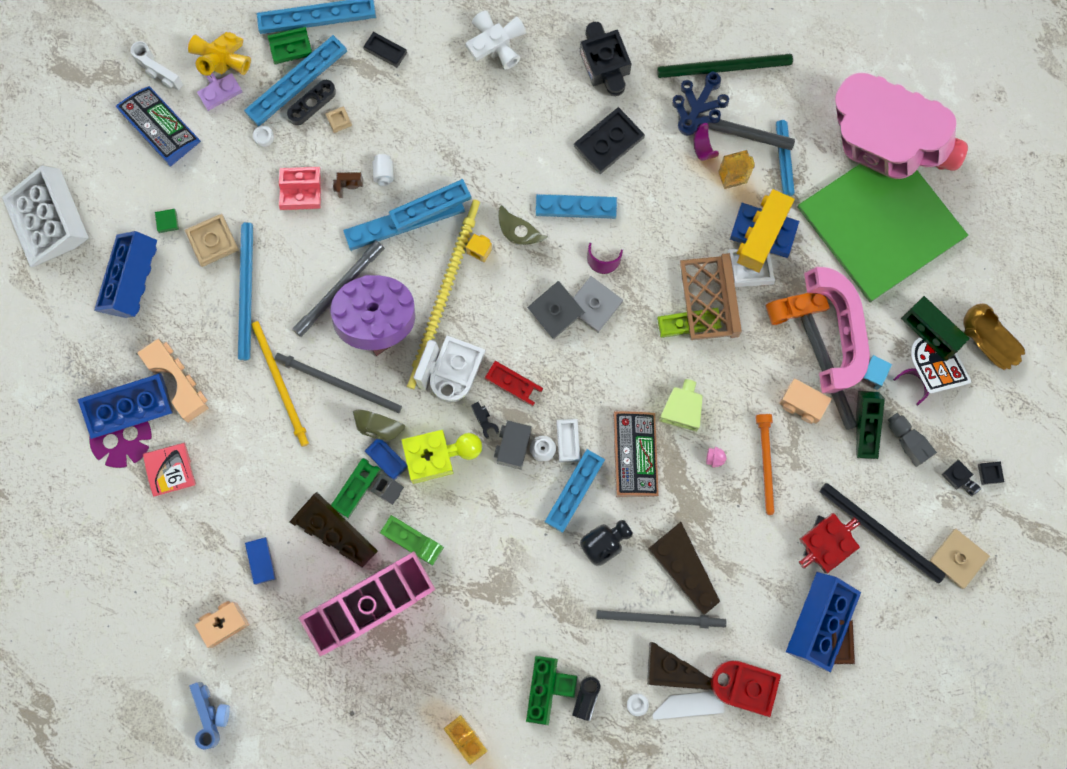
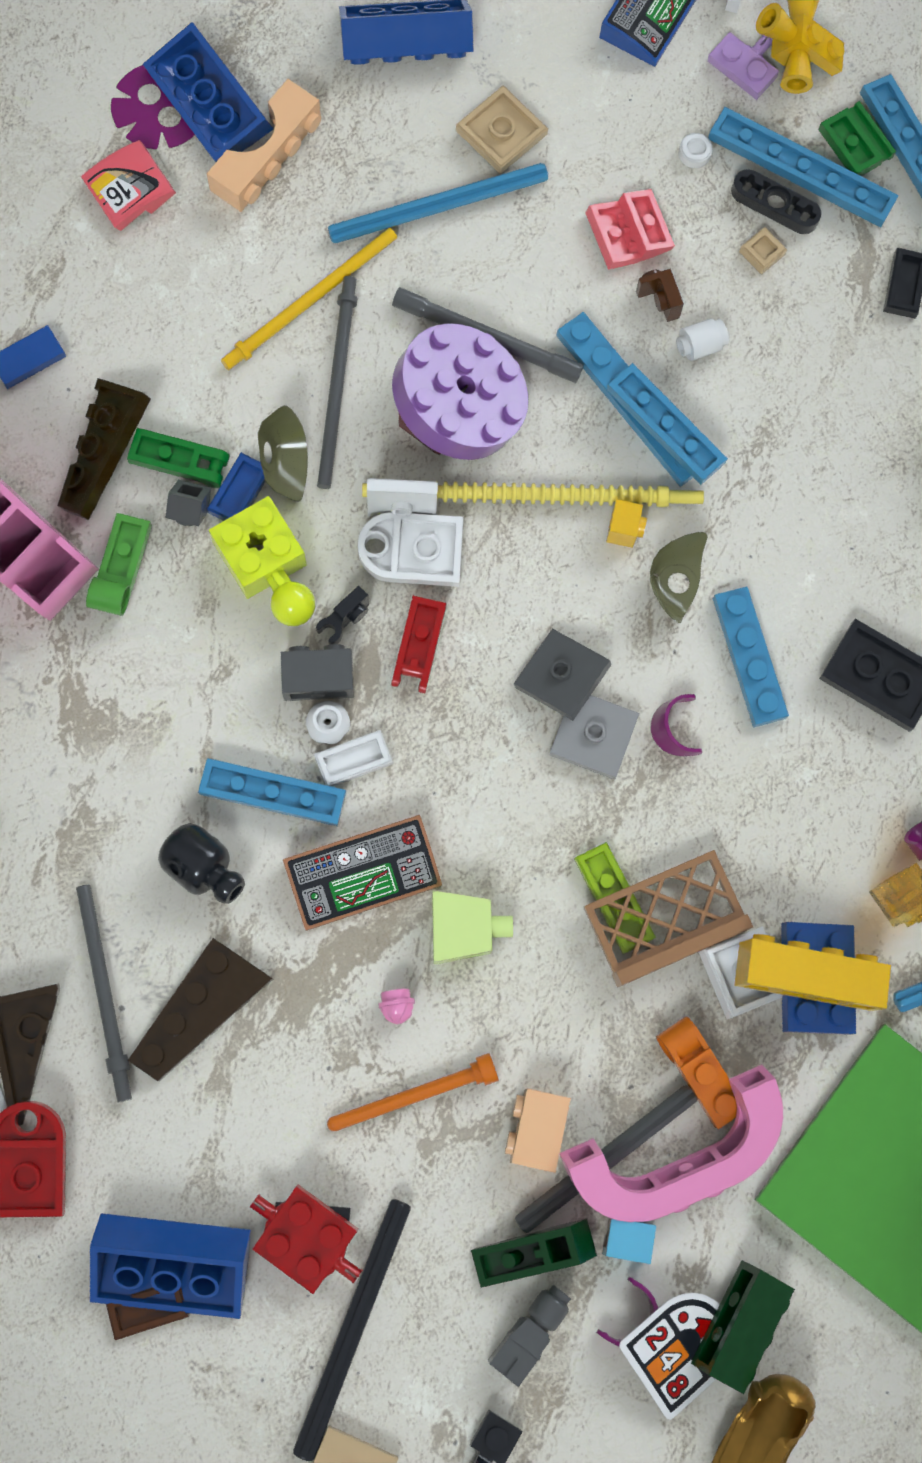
camera: 65 degrees right, 0 degrees up
(166, 220) = (511, 58): green tile -> none

